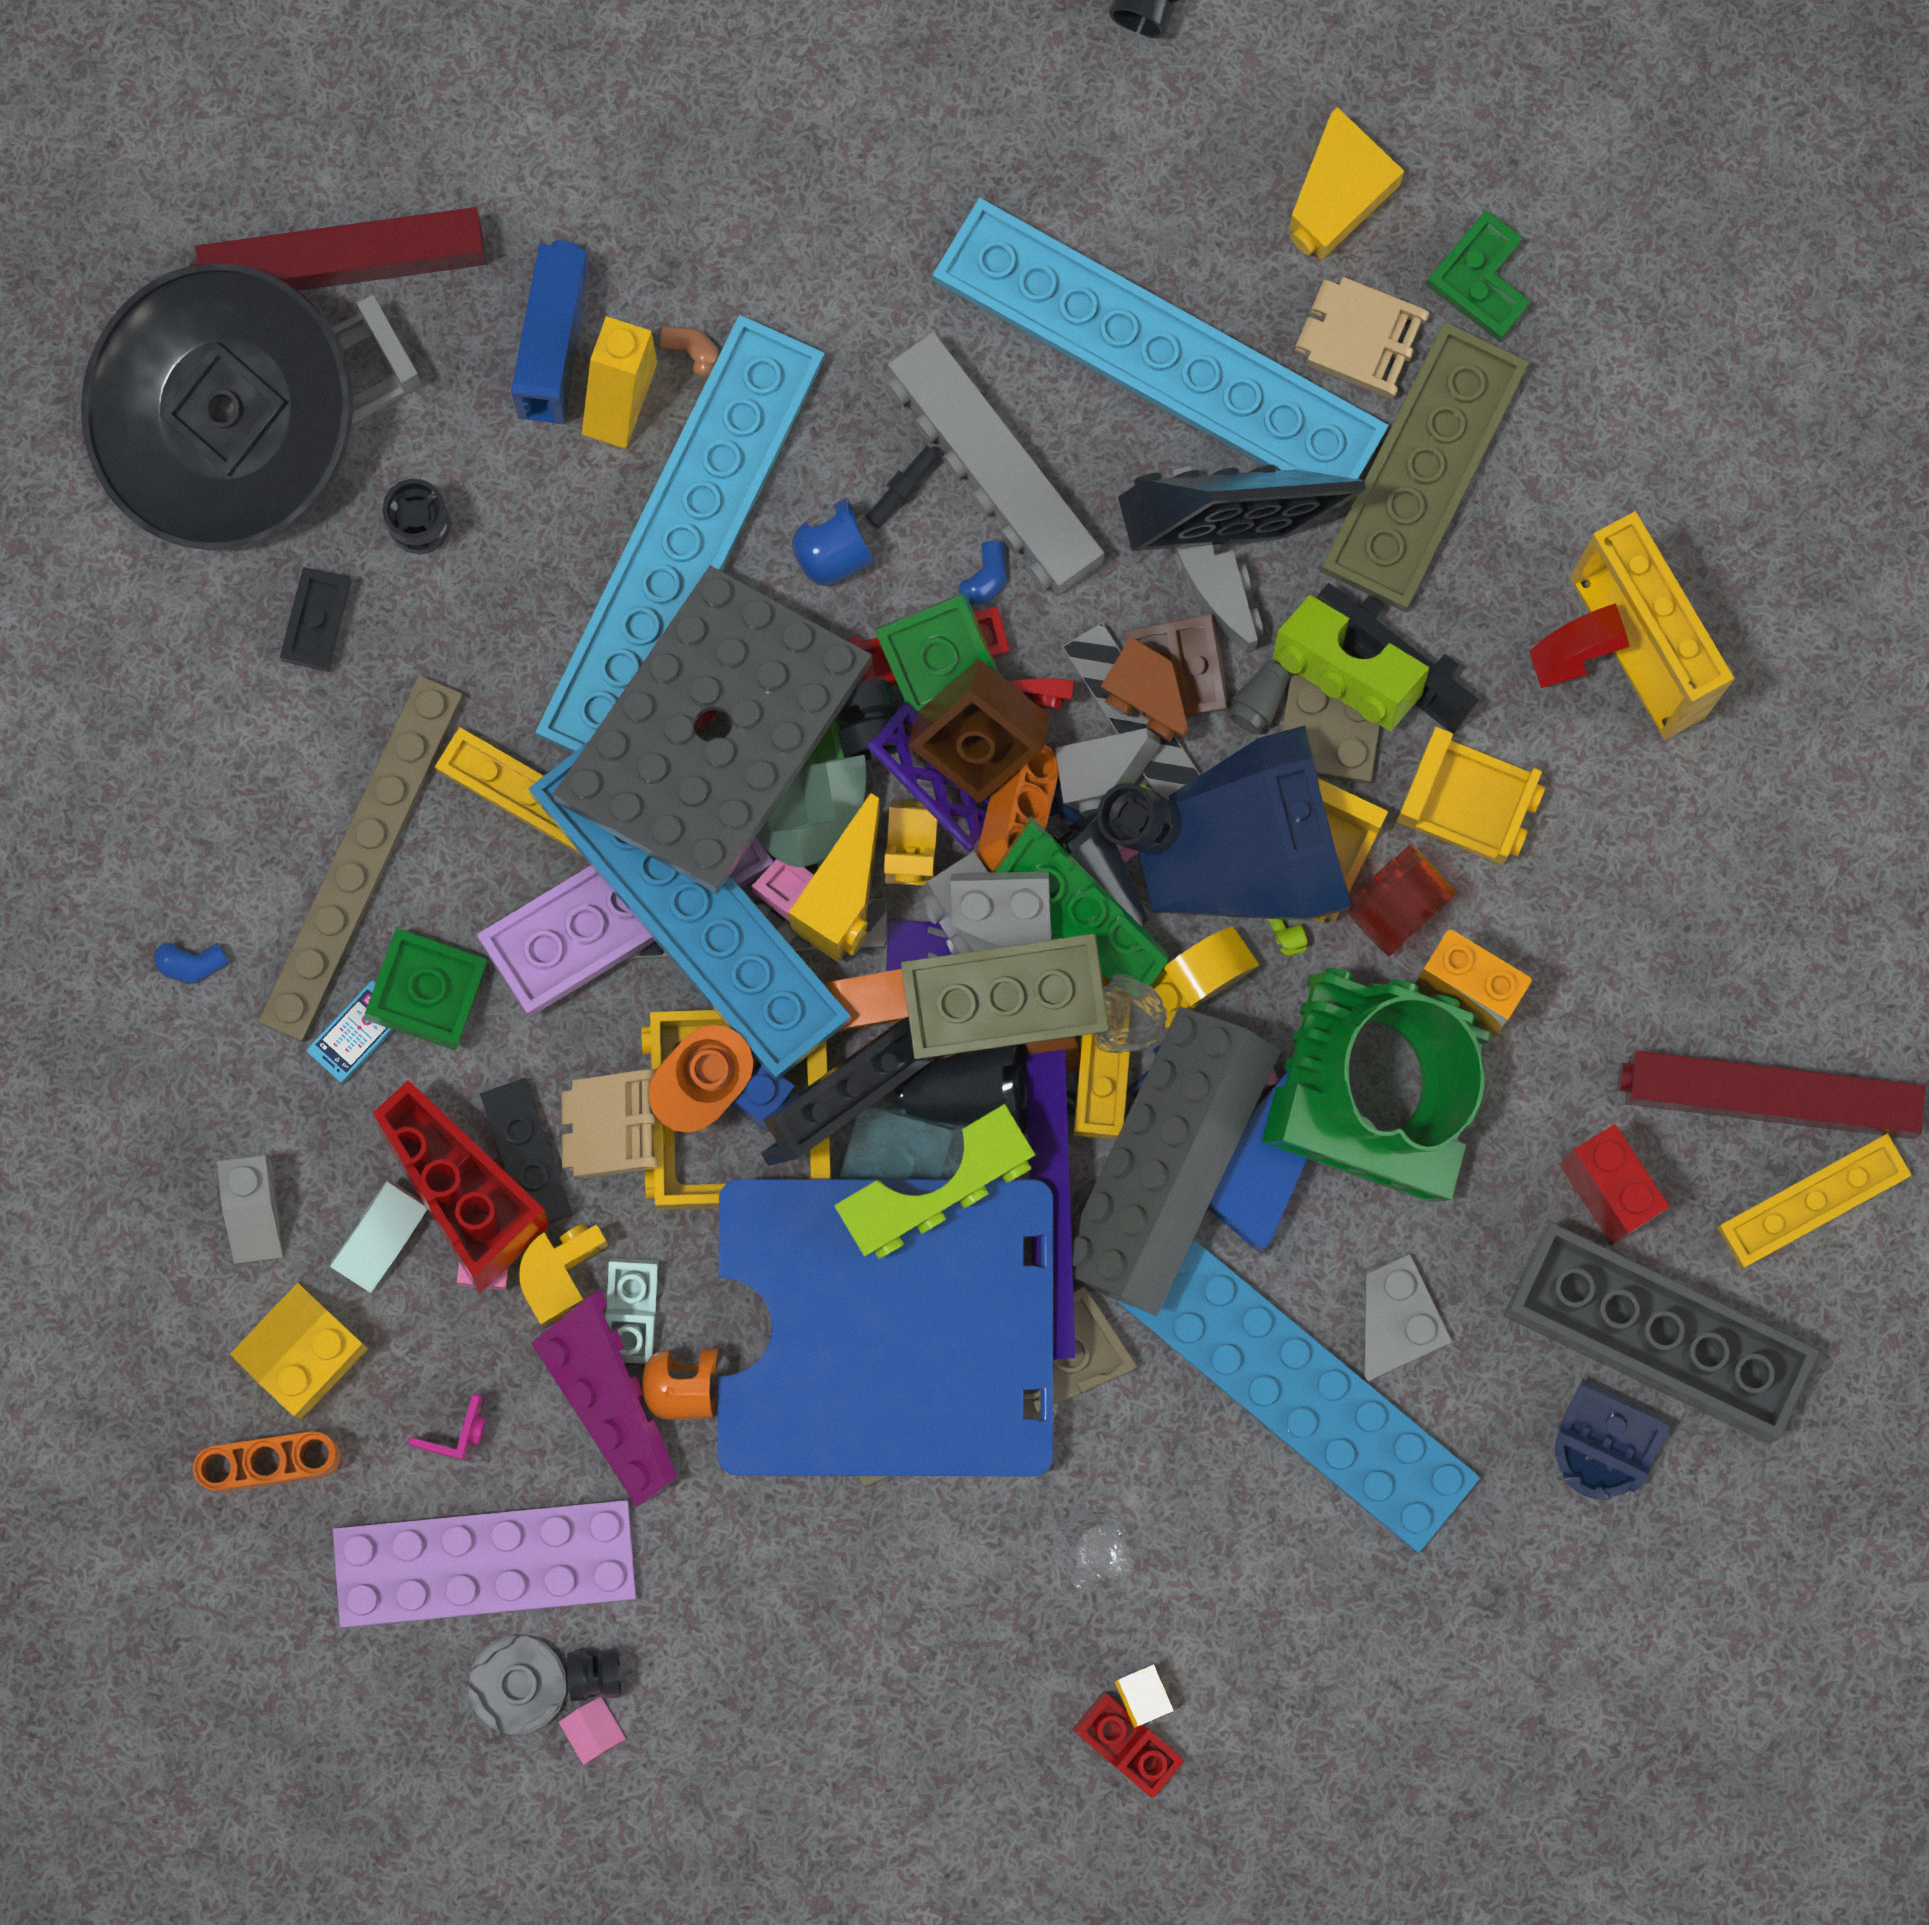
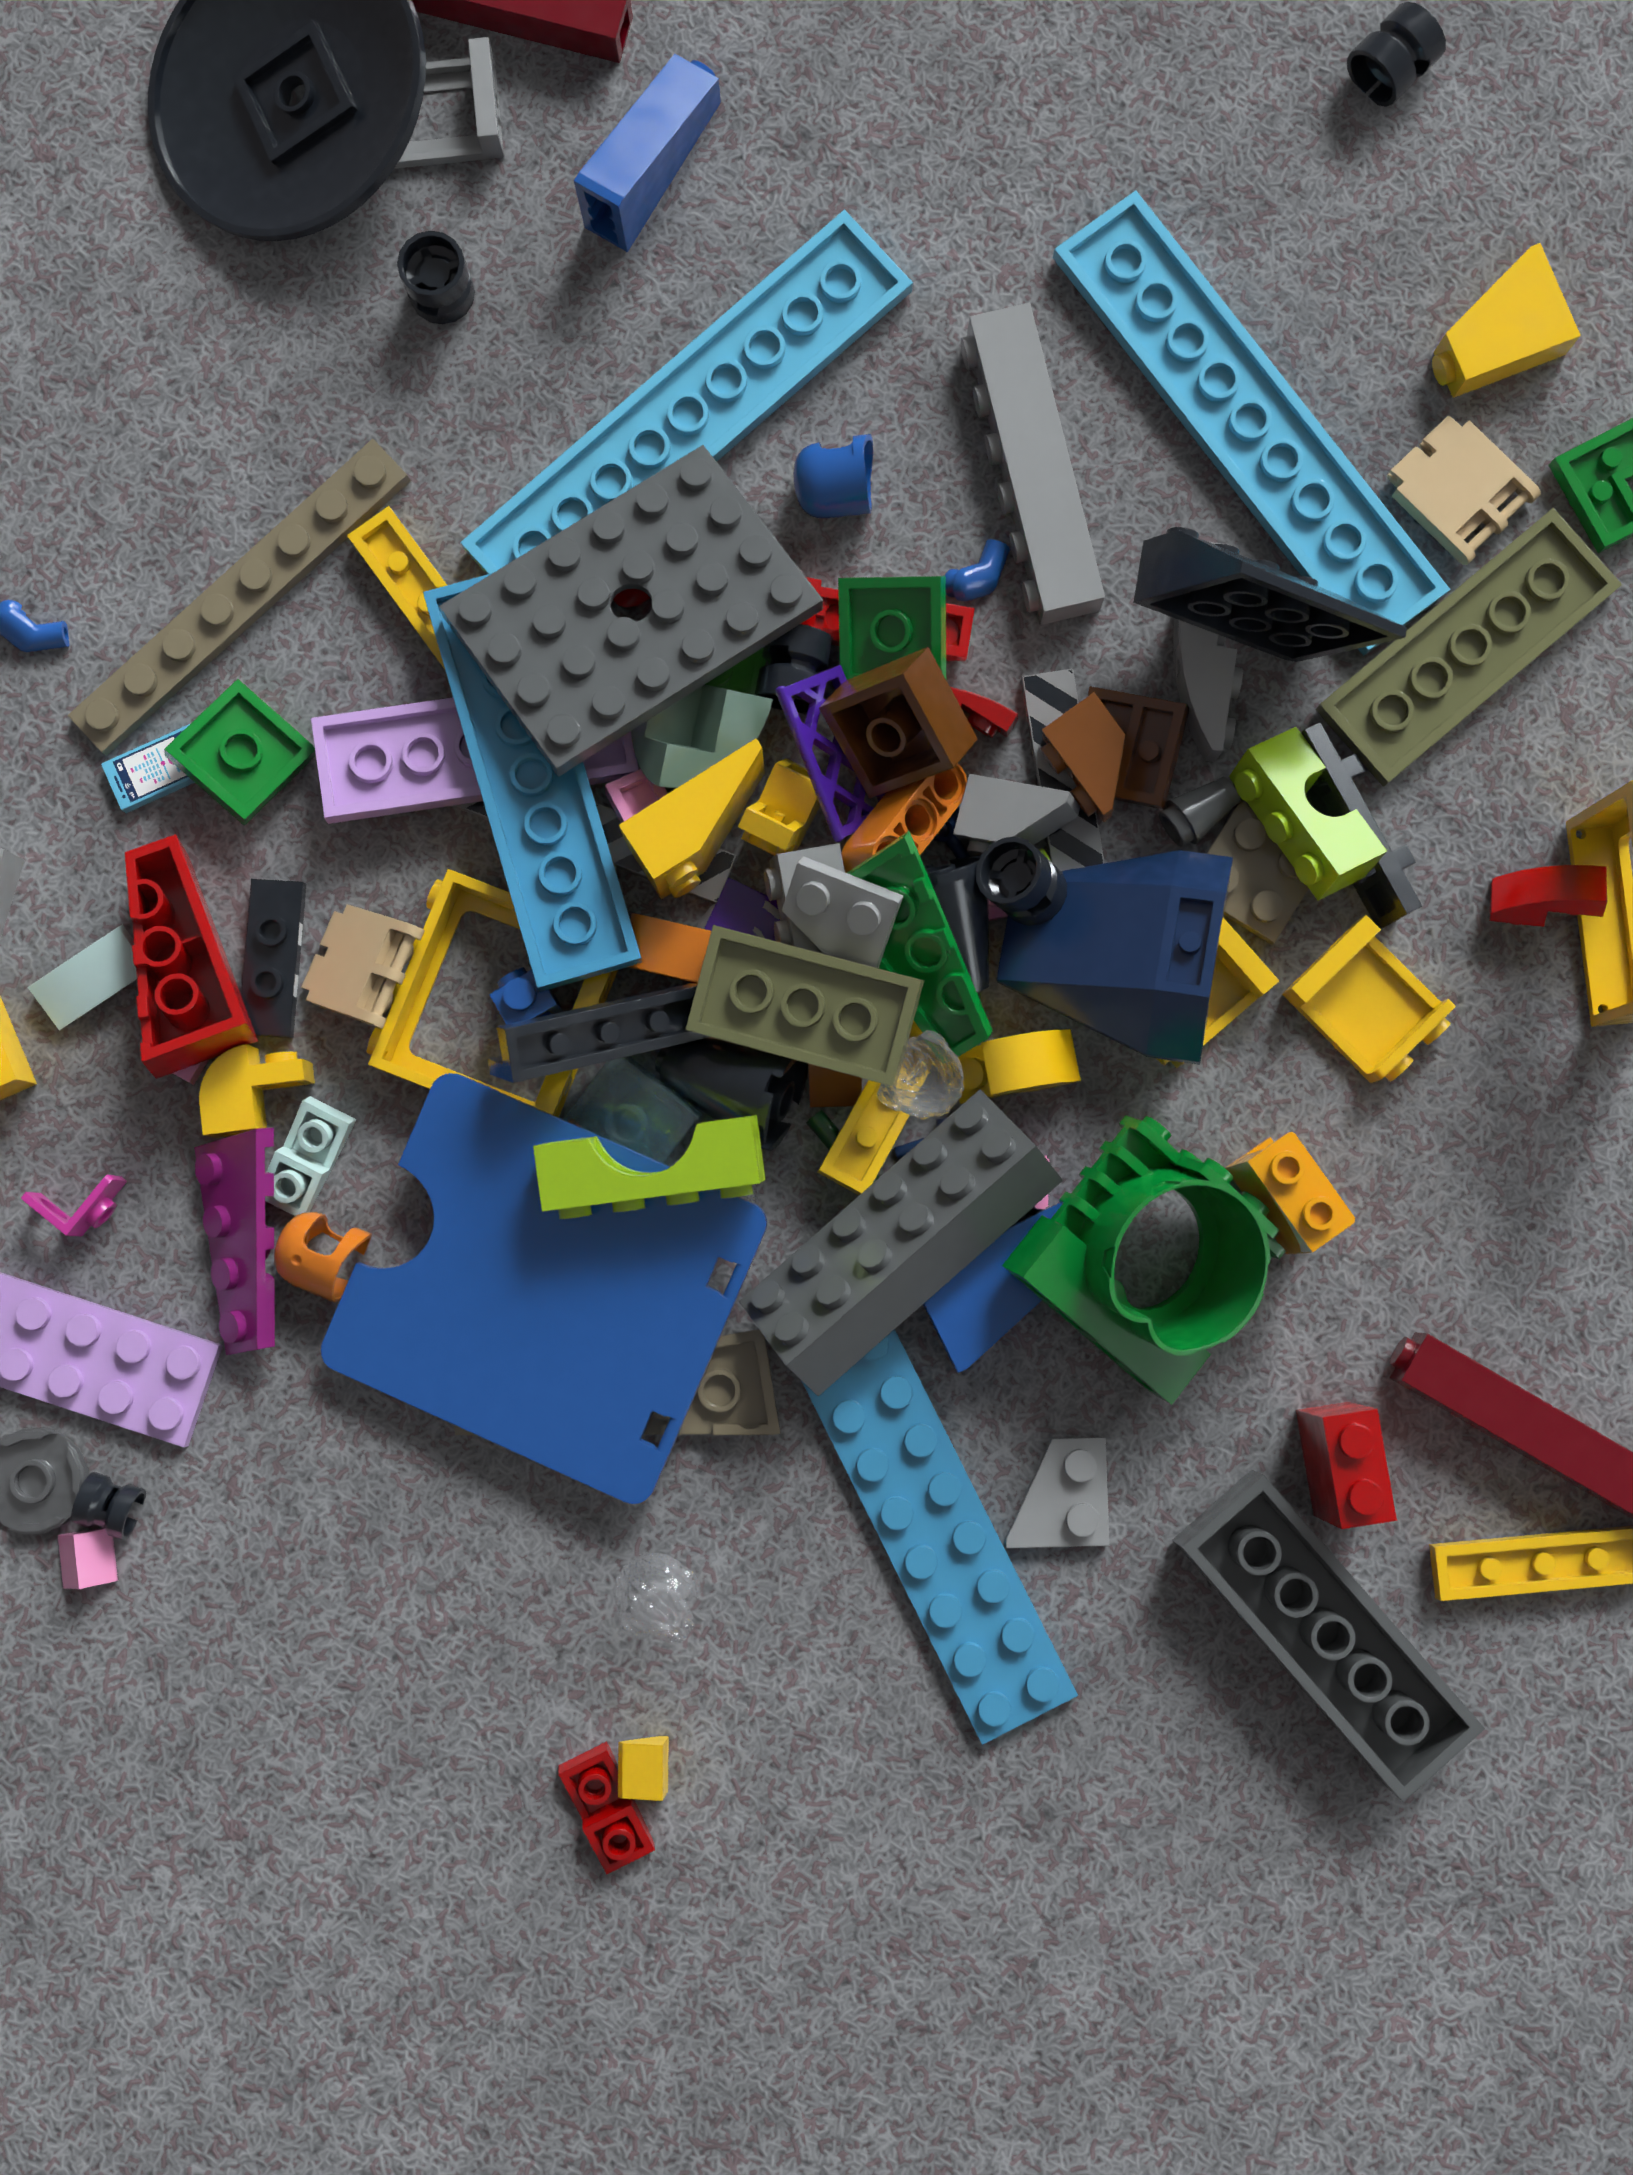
camera: 30 degrees right, 5 degrees up
(315, 619) = (297, 341): black plate -> none
(618, 381) = (693, 220): yellow slope -> none
(693, 342) = (788, 221): nougat arm -> none
(700, 1078) = (462, 957): orange piece -> none
(902, 486) = (933, 450): black bar -> none
(1051, 1166) = (777, 1198): dark purple sticker -> none
(1291, 938) = (1124, 1067): lime hand -> none
(1400, 900) = (1253, 1077): clear red brick -> none
(1607, 1442) = (1223, 1717): dark blue slope -> none

